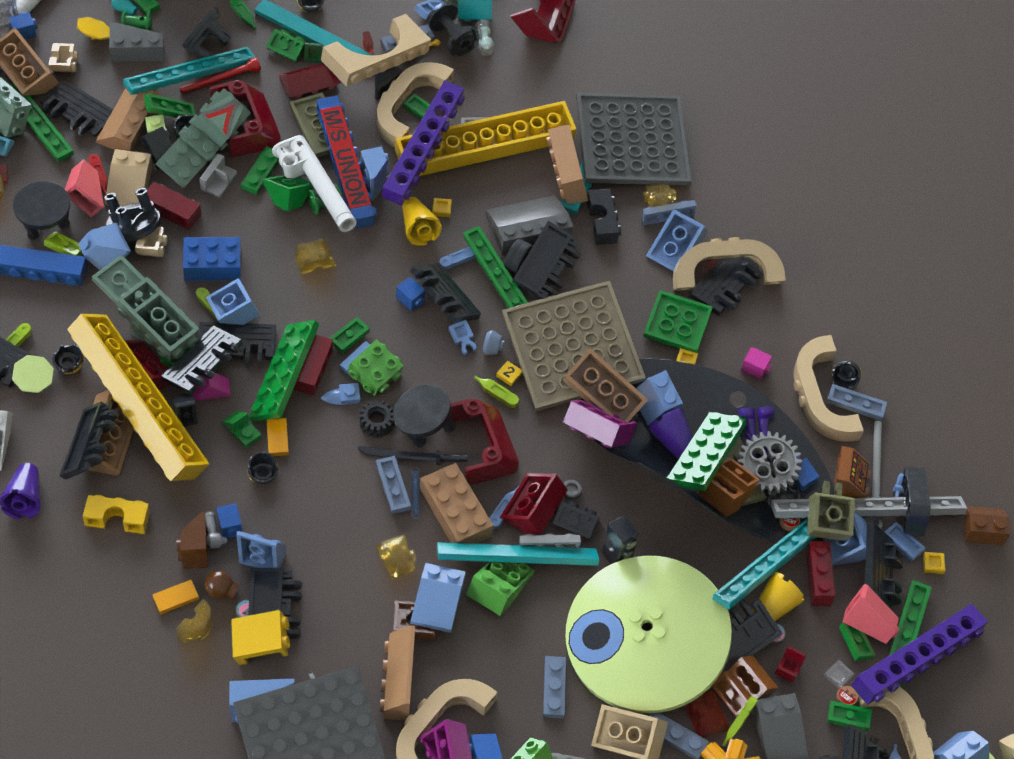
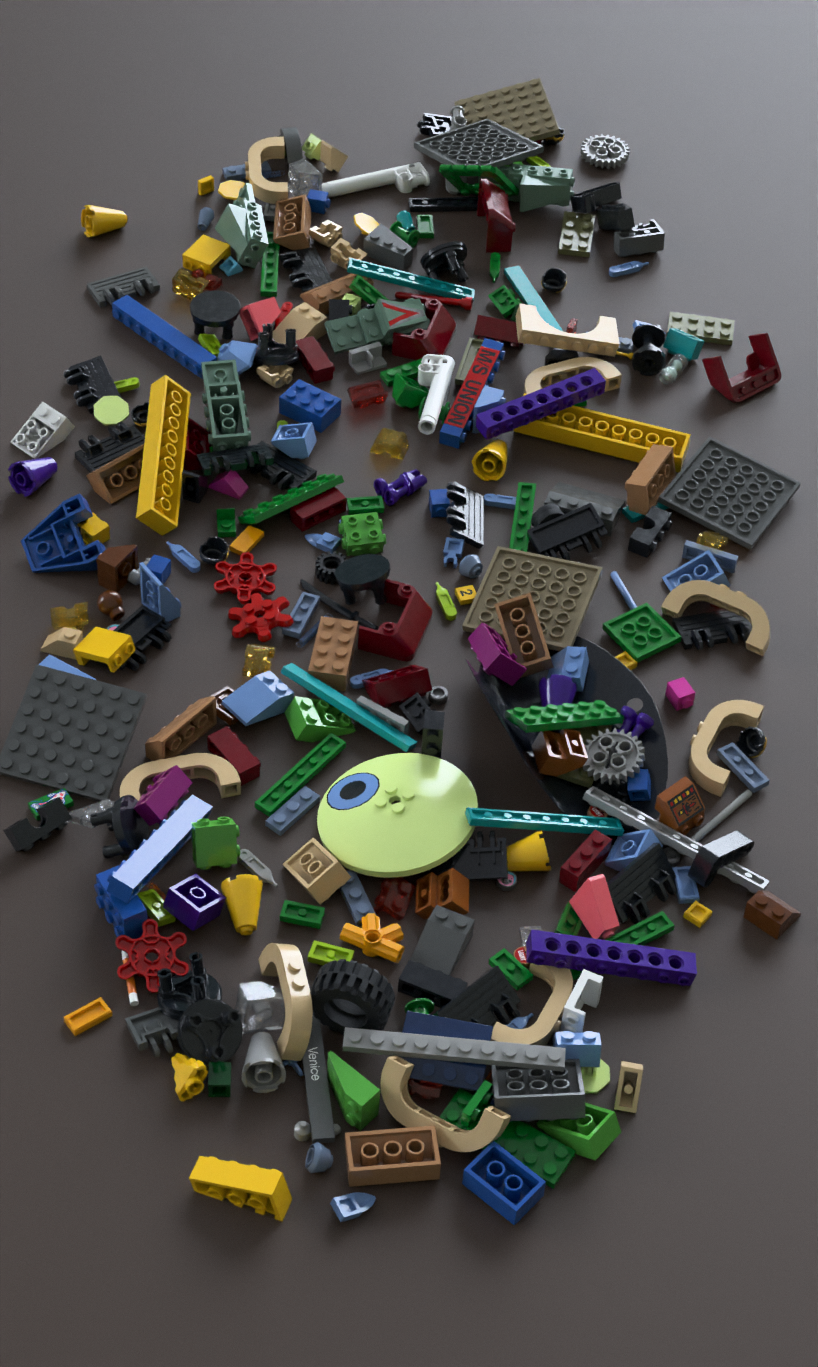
camera: 40 degrees right, 10 degrees down
(66, 416) = (108, 449): none -> black hinge
(85, 447) = (99, 466): black hinge -> none
(104, 74) = (342, 251): none -> tan cylinder
(116, 553) = (57, 541): none -> blue wedge
(175, 597) = (72, 596): light orange tile -> none
(211, 654) = (62, 642): none -> tan slope
(237, 490) = (184, 557): none -> medium blue piece
(250, 215) = (367, 394): none -> clear red bracket
(315, 466) = (245, 568): none -> red plate
(369, 290) = (409, 482): none -> dark purple piece
(369, 520) = (261, 626): none -> red plate
(442, 207) = (523, 463): yellow tile -> none
(456, 664) = (229, 747): none -> dark red brick
(532, 648) = (300, 774): none -> green plate
(629, 289) = (624, 592): none -> medium blue bar
(741, 718) = (415, 911): lime piece -> none
(790, 664) = (496, 906): dark red bracket -> none
(839, 507) = (622, 805): olive hinge -> none
(925, 701) = (585, 992): none -> white panel

